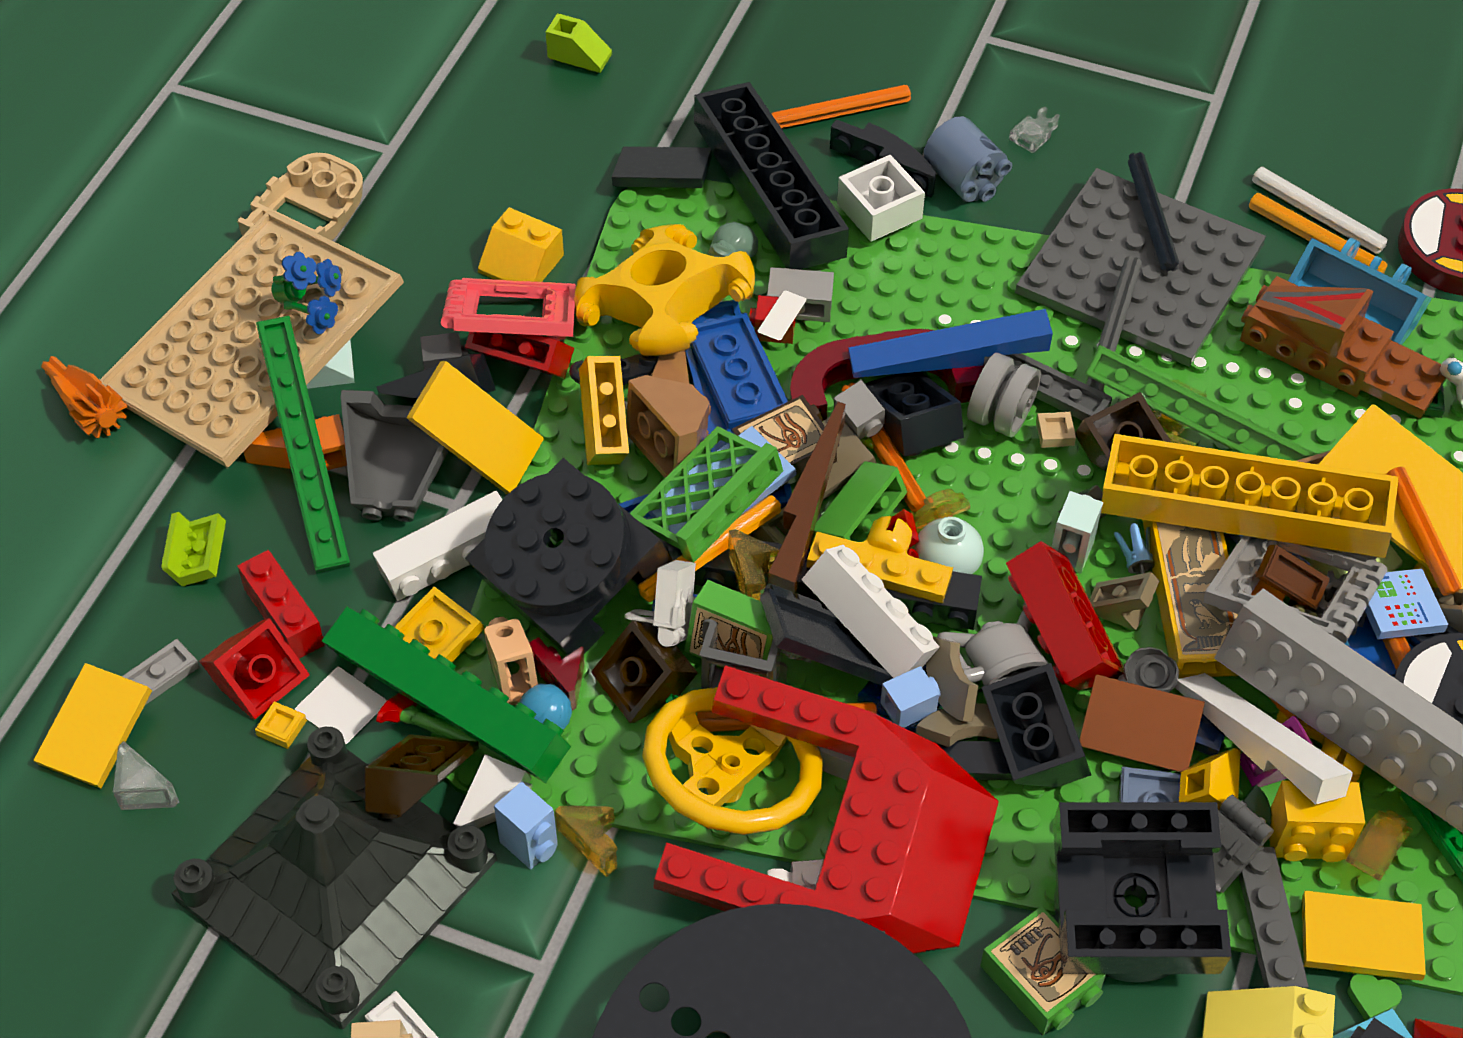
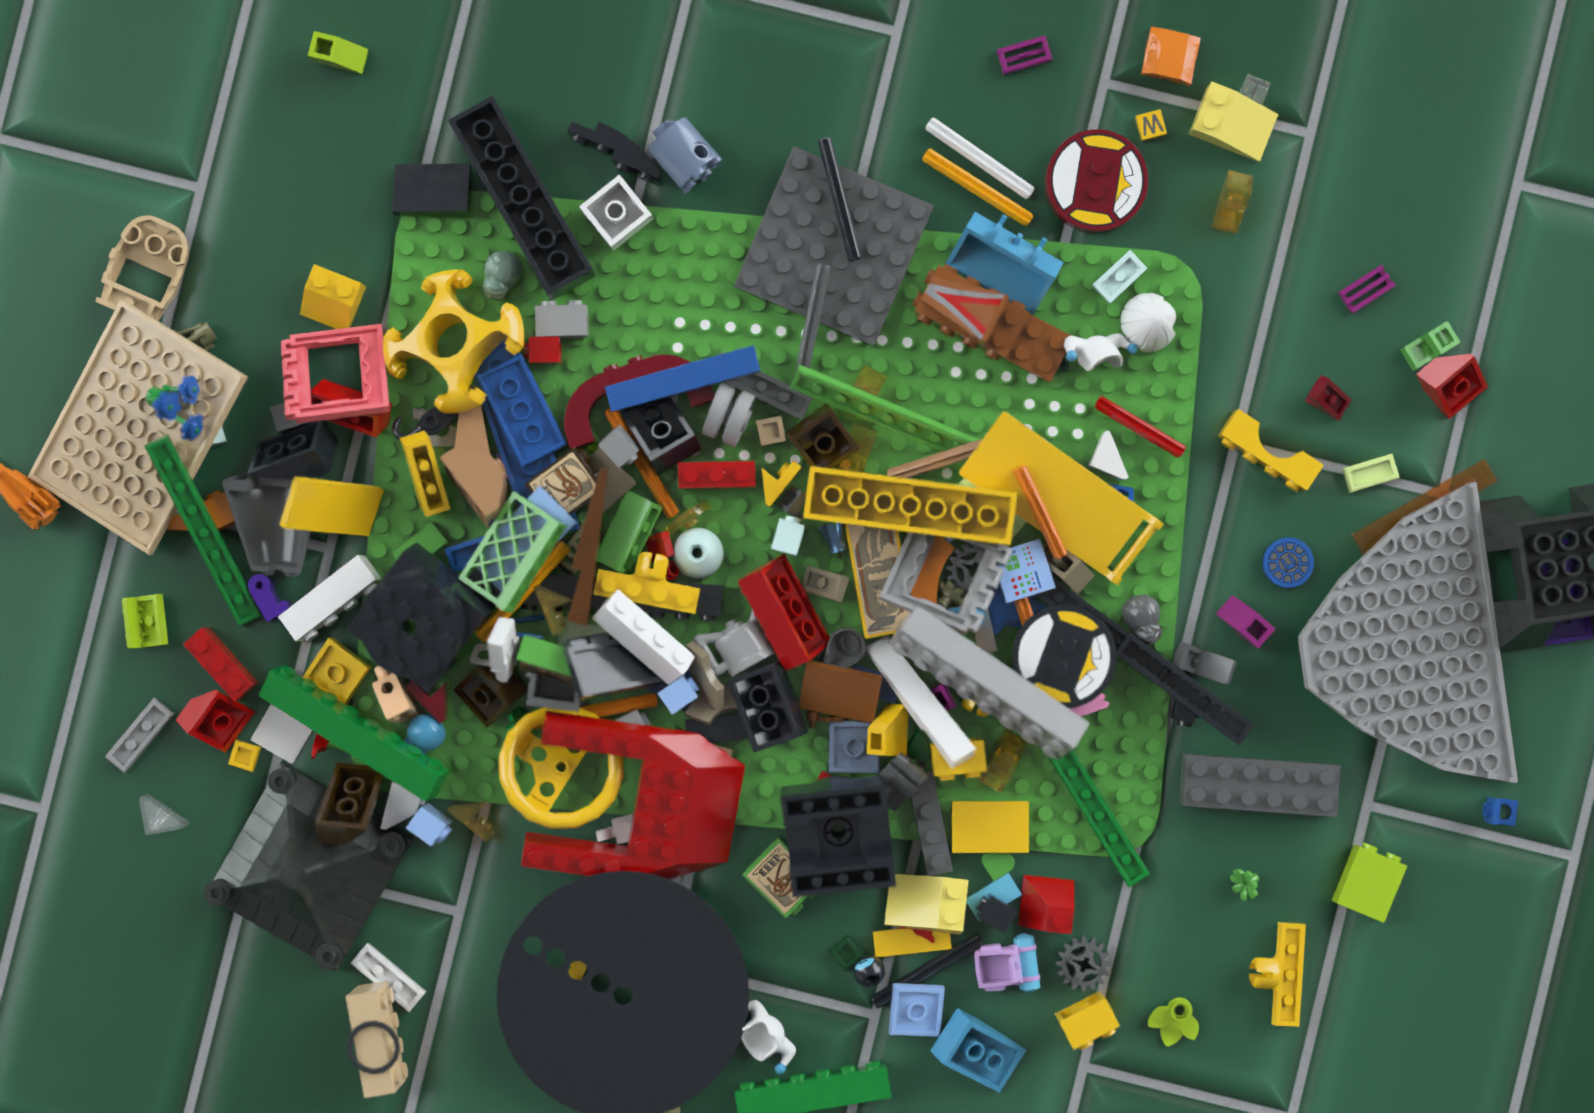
camera: 10 degrees left, 35 degrees up
(92, 725) = (115, 779): yellow tile -> none
(361, 540) = (266, 598): none -> dark purple leg
(782, 315) = (549, 356): white sticker -> none
(842, 106) = (574, 90): orange axle -> none
(983, 463) = (716, 475): none -> red brick
(1033, 132) = (740, 97): clear plate -> none
(1058, 482) = (775, 487): none -> yellow slope
(1097, 761) = (813, 716): none -> reddish brown piece
(1292, 577) = (943, 570): reddish brown tile -> none
(1371, 130) = (1004, 61): none -> magenta tile

